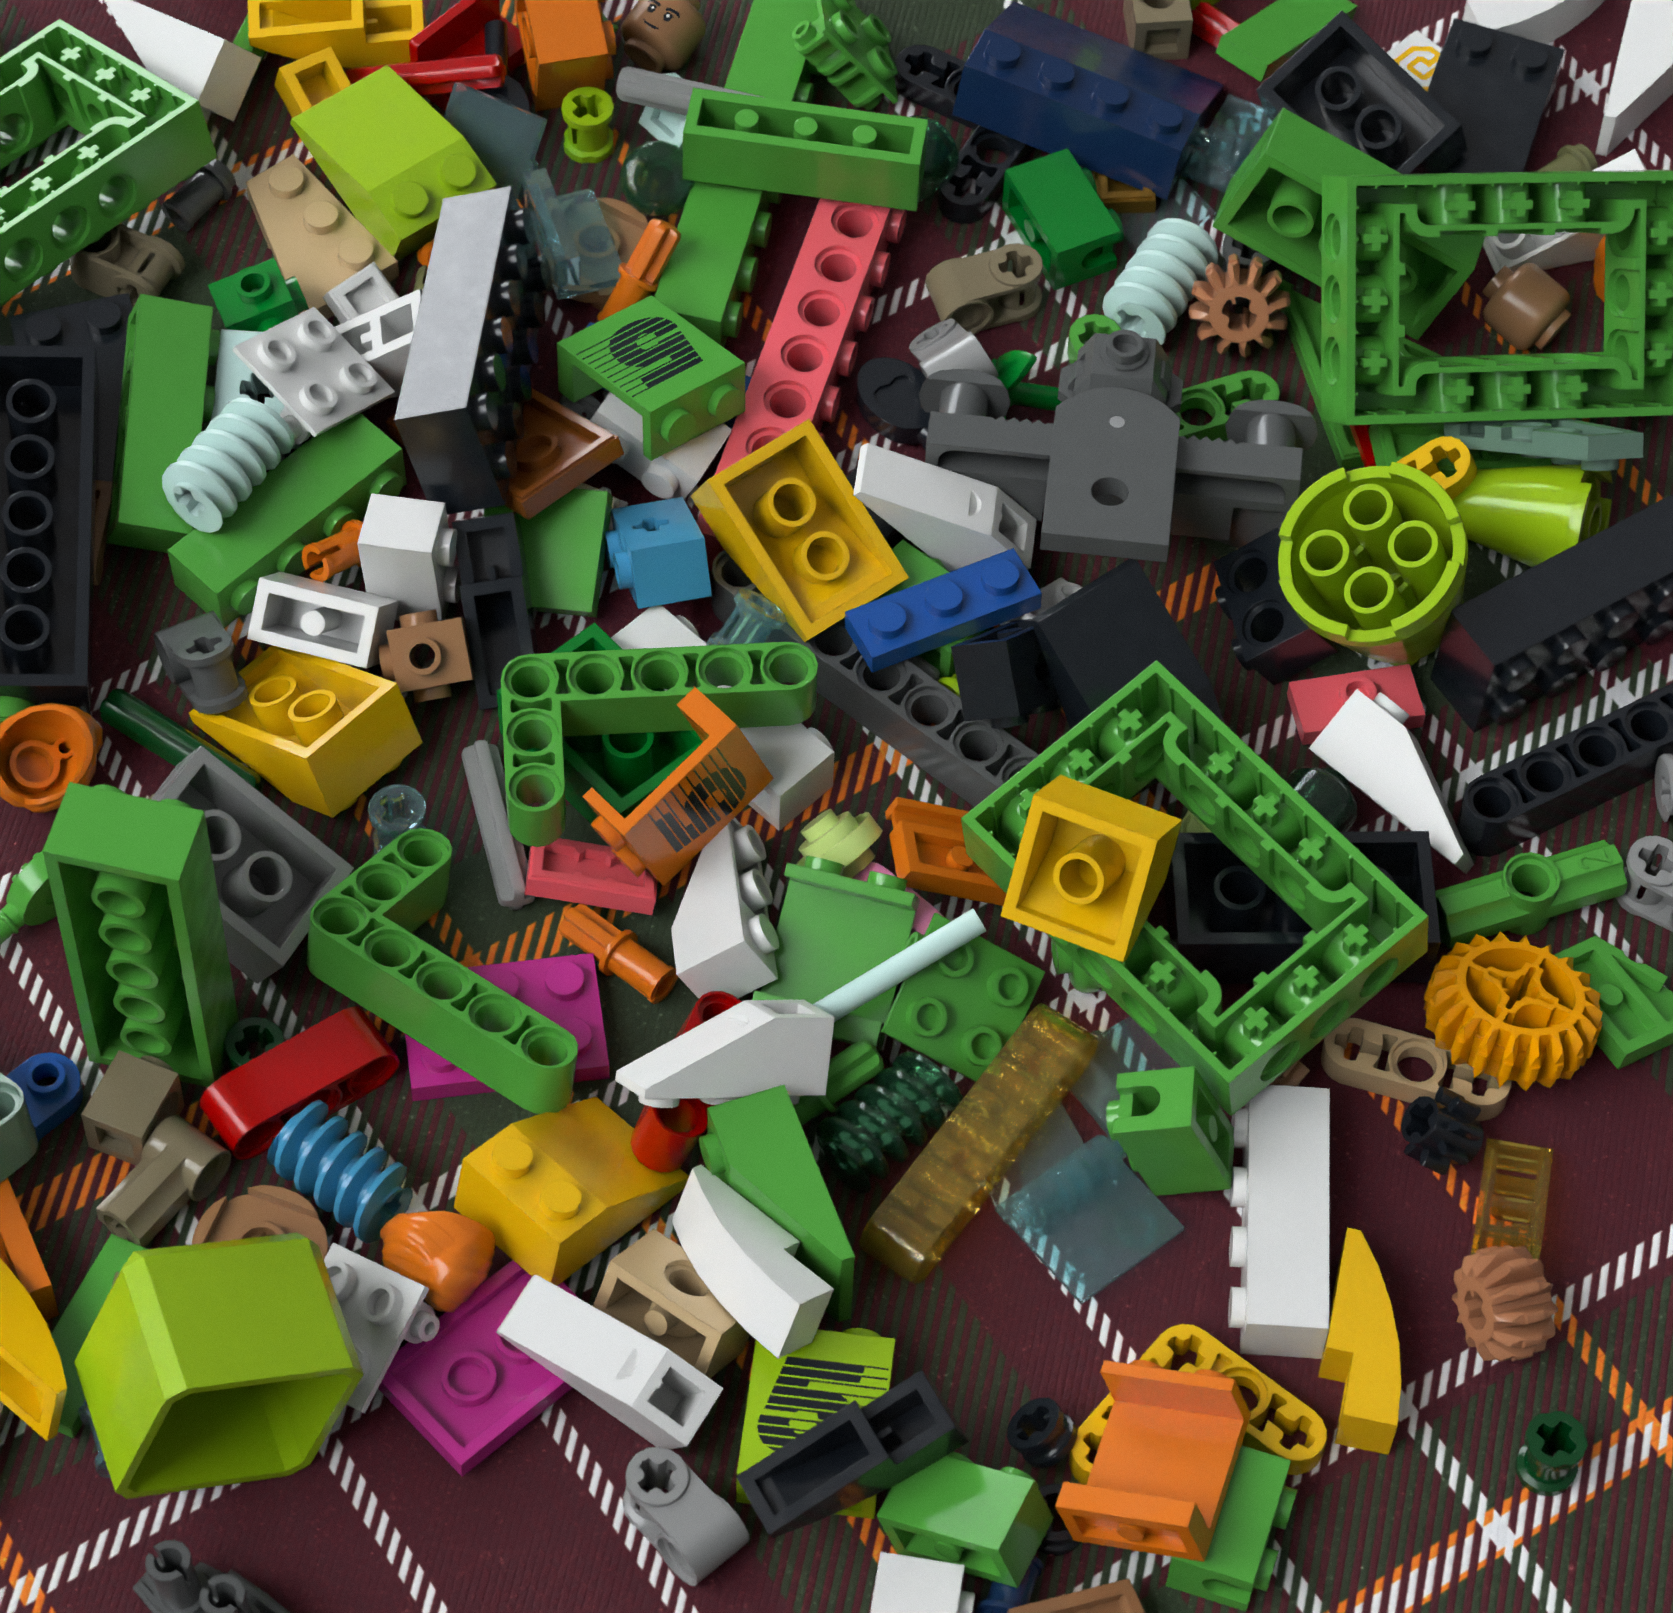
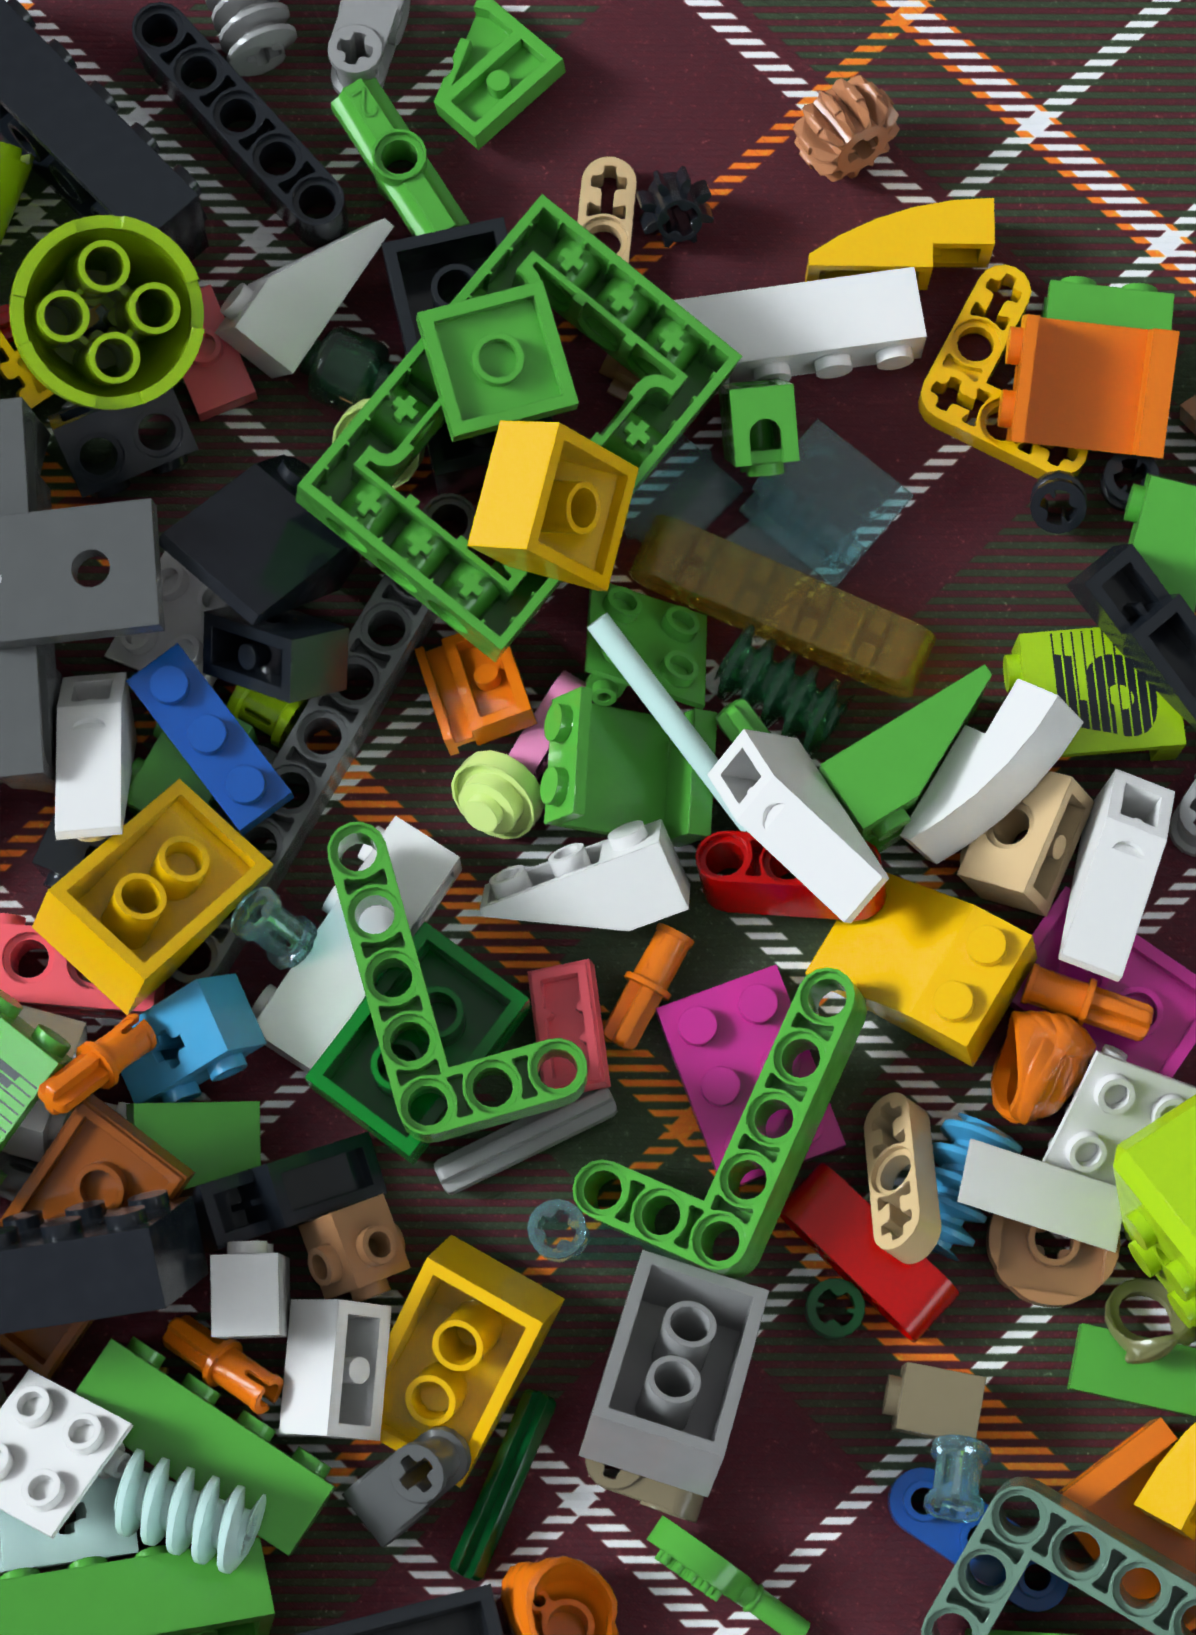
camera: 100 degrees left, 20 degrees up
(55, 1092) = (957, 1478): none -> clear light blue bush
(142, 929) = (851, 1392): bright green brick -> none
(173, 1168) = (991, 1346): dark tan piece -> none
(319, 1191) = (1041, 1195): none -> white sticker
(357, 1105) = (908, 1217): none -> tan beam
(484, 1315) = (1087, 1003): none -> orange axle
(644, 453) = (97, 1065): none -> orange axle
(690, 802) = (458, 893): orange panel -> none
(1253, 844) = (497, 360): none -> bright green tile
(1500, 1233) = (748, 124): clear yellow slope -> none
(1512, 1011) = (530, 139): light orange gear -> none
(1549, 1474) = (959, 68): dark green bush -> none

